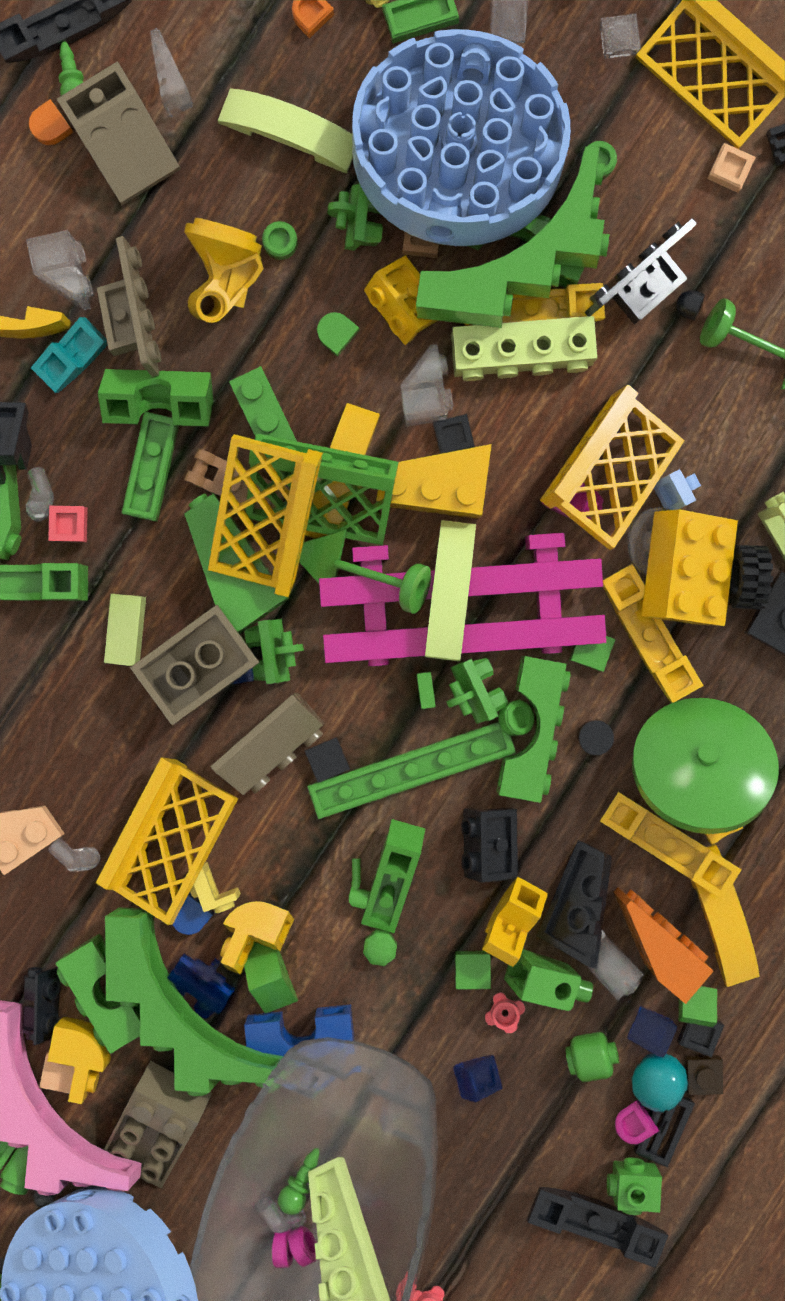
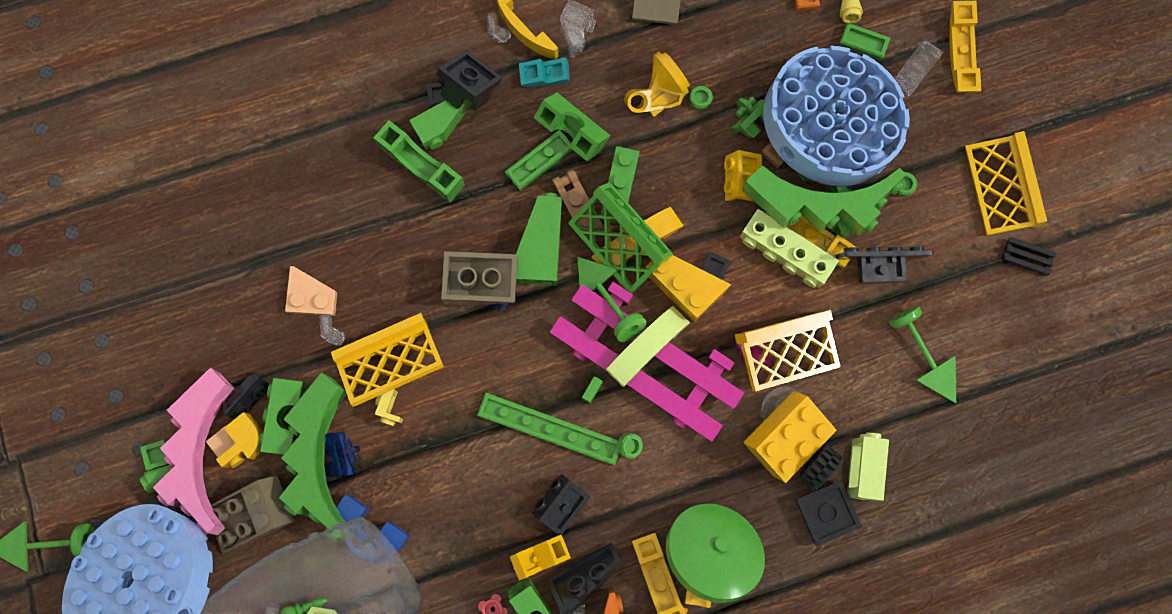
camera: 40 degrees right, 10 degrees down
(40, 496) = (470, 130): clear arm -> none
(68, 524) = (472, 155): coral plate -> none
(124, 629) = (457, 232): yellowish green slope -> none
(125, 313) = (590, 73): dark tan bracket -> none
(191, 916) = (365, 413): blue tile -> none
(251, 924) = (394, 443): yellow brick -> none
(268, 978) = (379, 480): bright green slope -> none
(269, 745) = (484, 351): dark tan slope -> none
(276, 650) = (528, 305): bright green hips -> none
(289, 125) = (750, 44): yellowish green slope -> none
(295, 521) = (589, 244): yellow fence -> none
(327, 759) = (508, 387): black tile -> none
(336, 332) = (693, 166): bright green tile -> none
(357, 896) = (463, 475): bright green hand -> none
(380, 947) = (453, 514): bright green tile -> none
(393, 875) = (492, 479): bright green slope -> none
(424, 392) = (715, 231): clear slope -> none
(471, 693) = (615, 412): bright green hips -> none
(472, 970) = (494, 569): bright green tile -> none
(524, 773) = (611, 479): bright green arch -> none
(593, 655) = (700, 444): bright green tile -> none
(595, 737) = (666, 492): black tile -> none
(620, 36) = (964, 130): clear plate -> none
(650, 636) = (740, 458): yellow slope -> none
(676, 490) = (814, 388): light blue tile -> none
(690, 304) = (898, 296): black hinge -> none
(731, 167) = (974, 242): light nougat tile -> none

